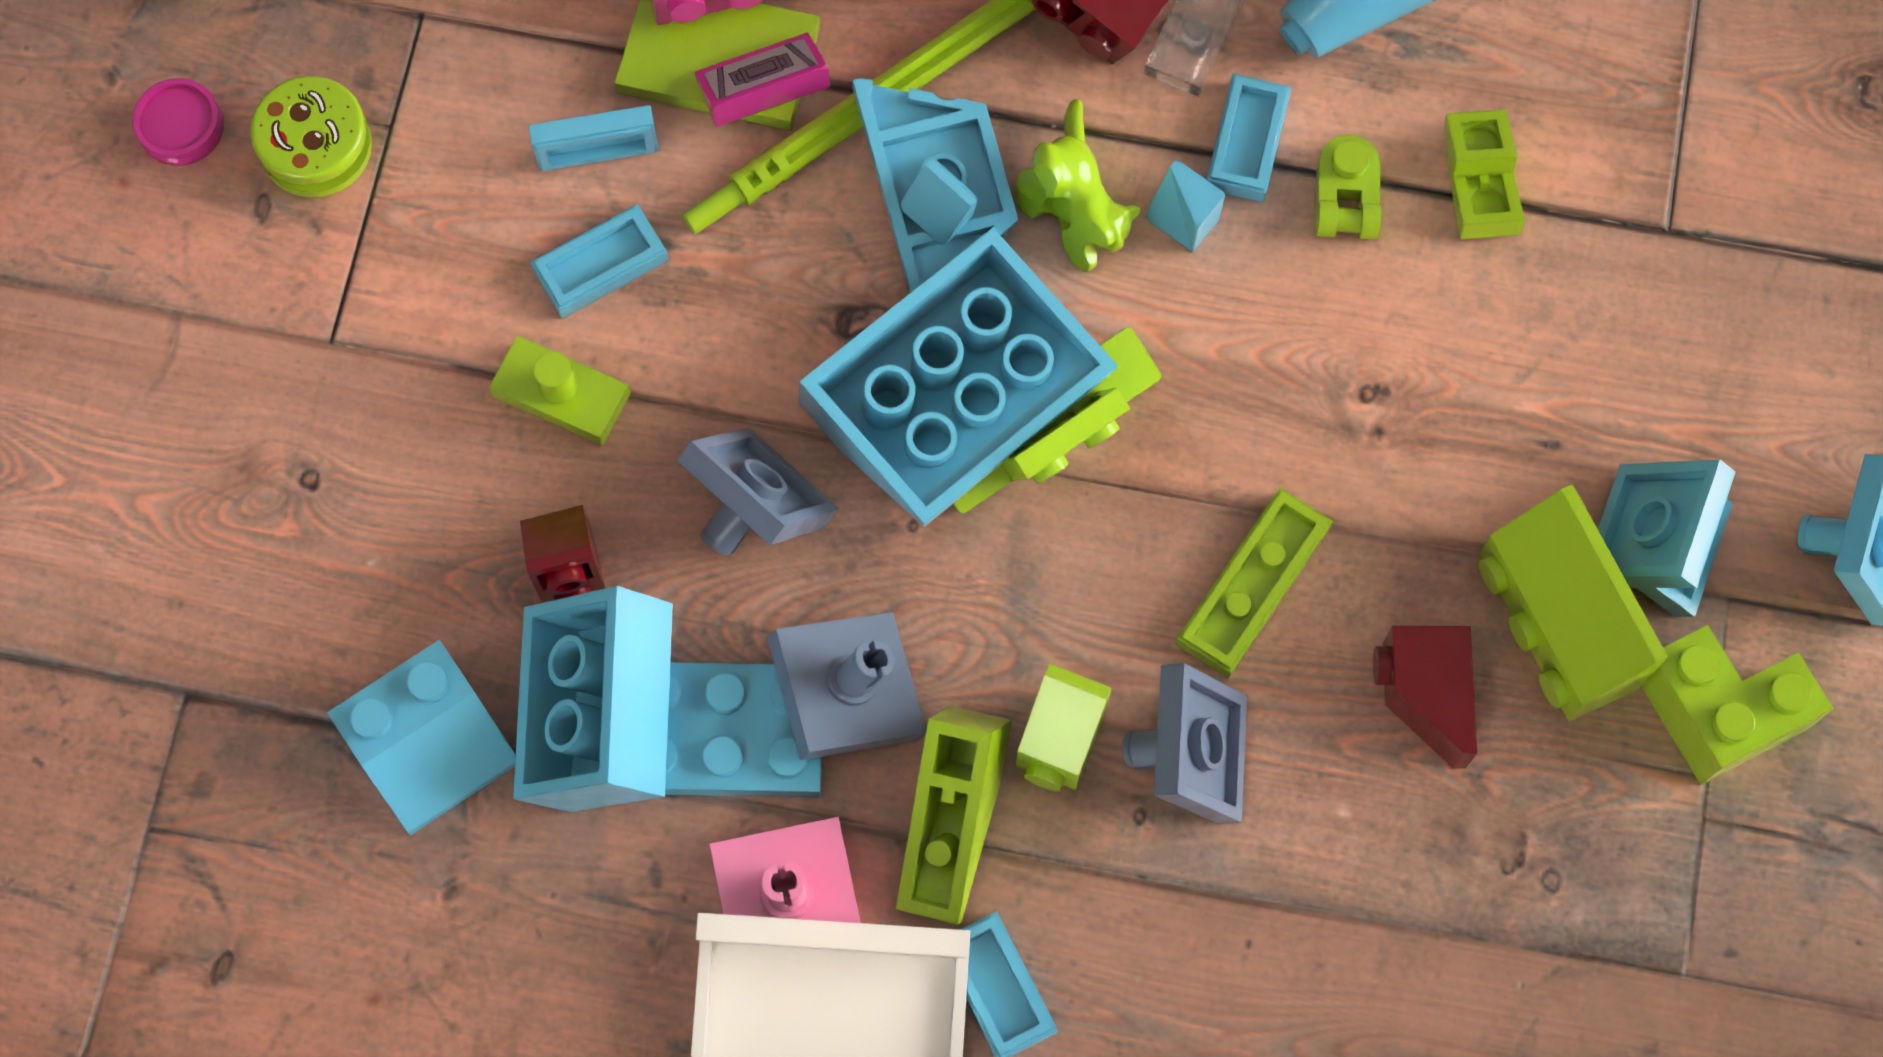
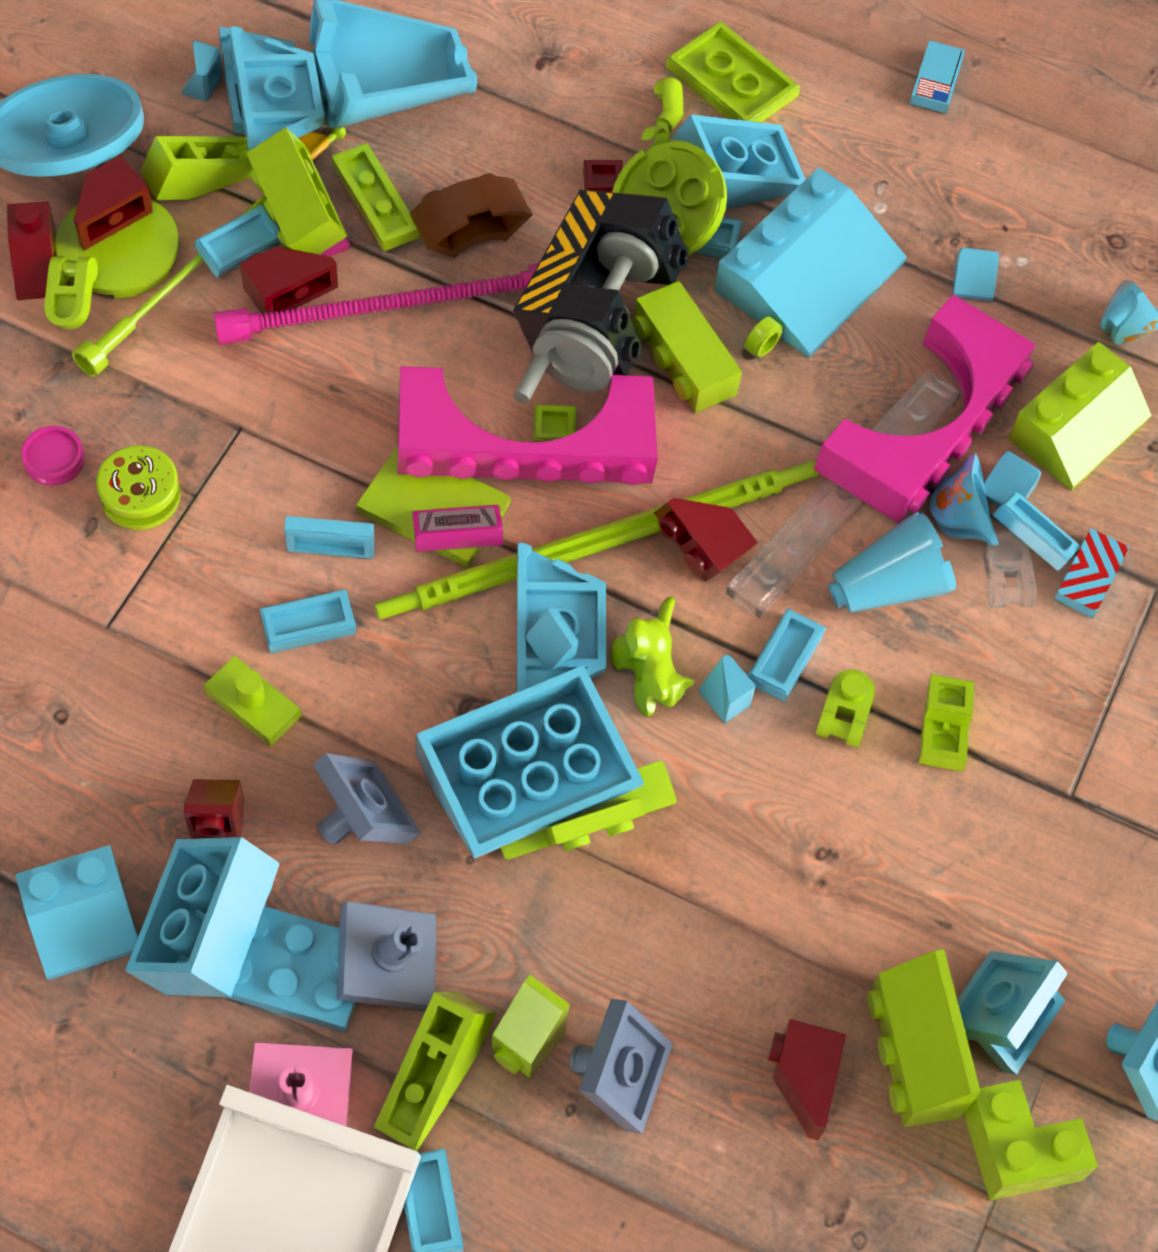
camera: 10 degrees right, 10 degrees down
(1253, 583) = (701, 964): lime tile -> none

